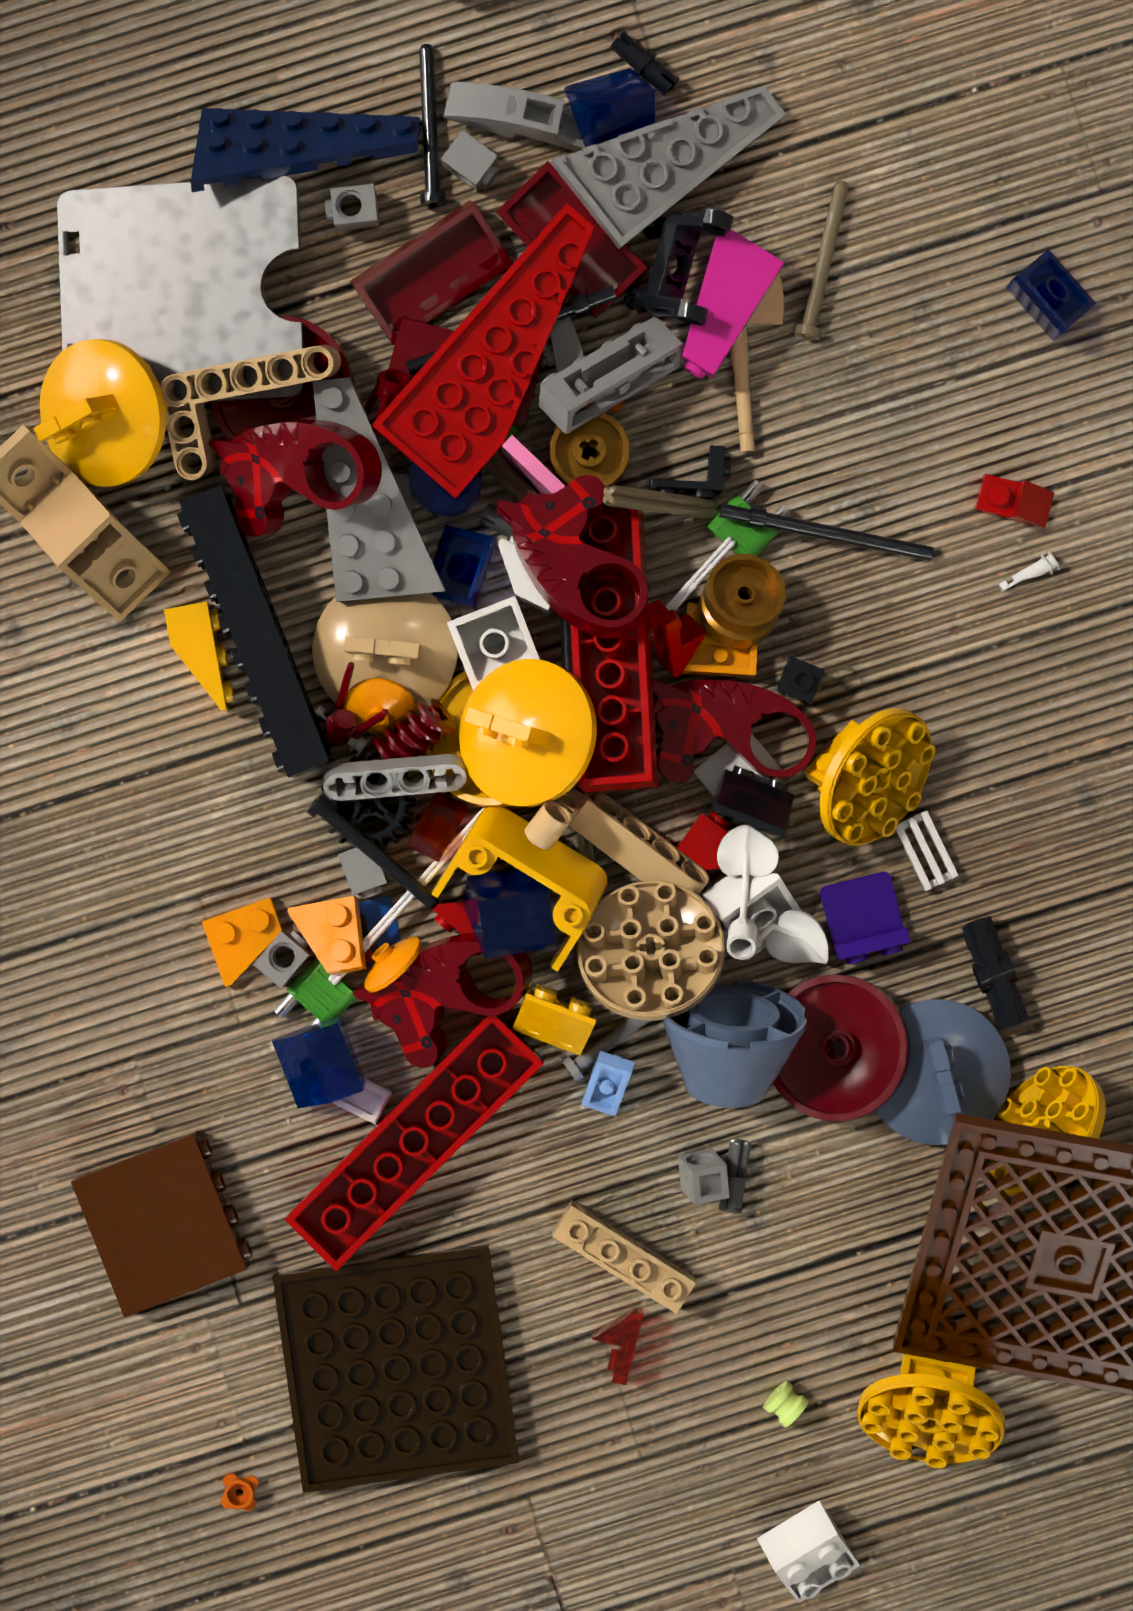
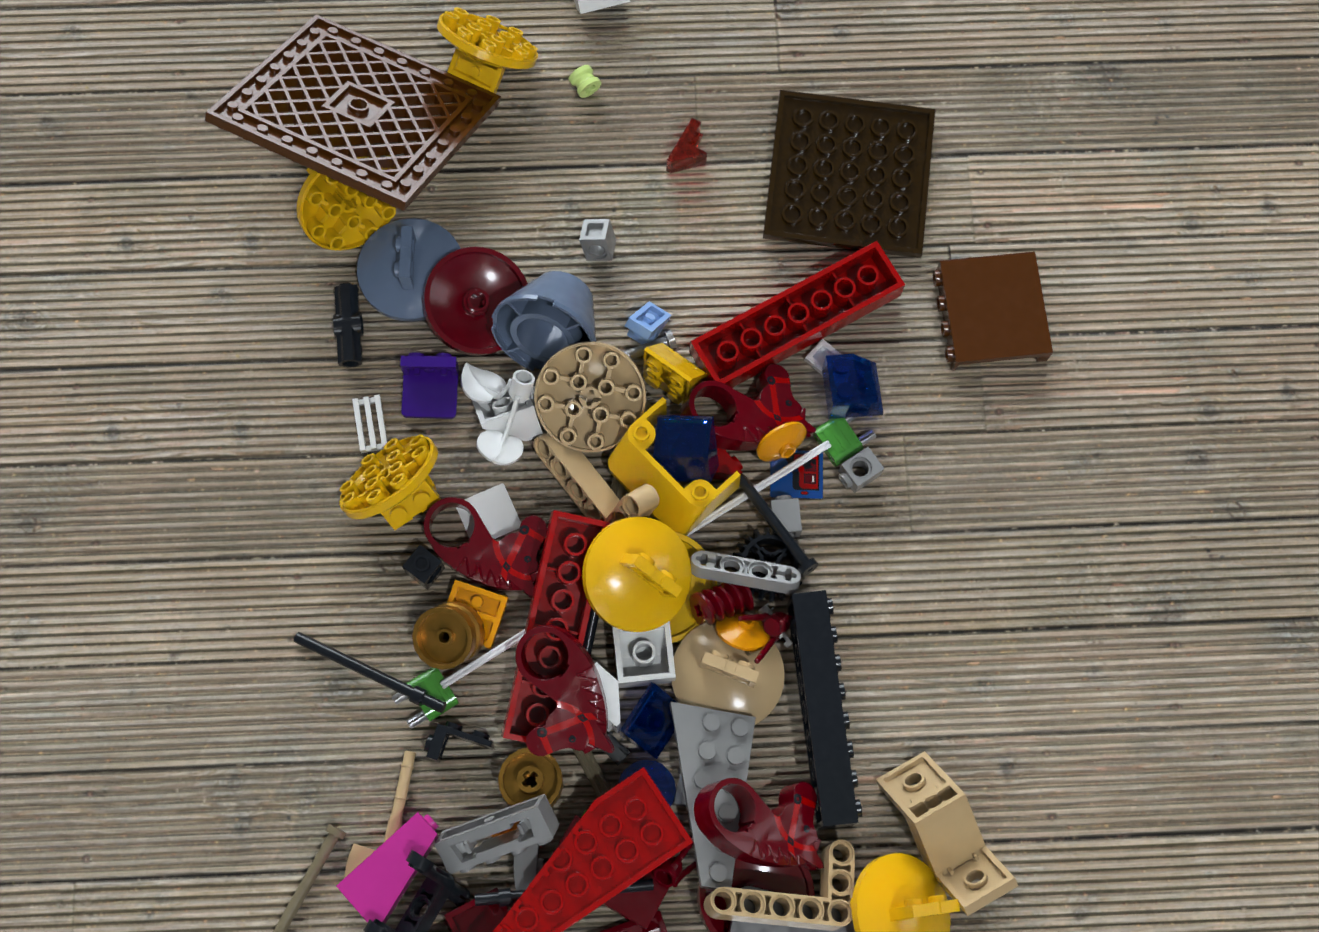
camera: 170 degrees left, 15 degrees down
(195, 641) = (870, 718): yellow slope -> none
(232, 1499) = (979, 116): orange plate -> none
(241, 937) = (887, 495): light orange wing -> none
(333, 933) = (819, 477): light orange wing -> none
(437, 826) = (723, 531): clear red slope -> none
(530, 467) = (577, 776): bright pink tile -> none
(624, 1257) = (669, 203): tan brick -> none
(660, 502) = (488, 724): dark tan axle -> none
(673, 637) = (507, 621): red slope -> none
(703, 840) = (527, 471): red slope -> none
(737, 1175) = (572, 241): dark grey axle -> none
(753, 802) = (485, 483): black slope -> none
(1014, 500) = (222, 660): red slope -> none
(1037, 569) = (223, 603): white piece -> none
(1050, 294) = (140, 808): clear blue slope -> none

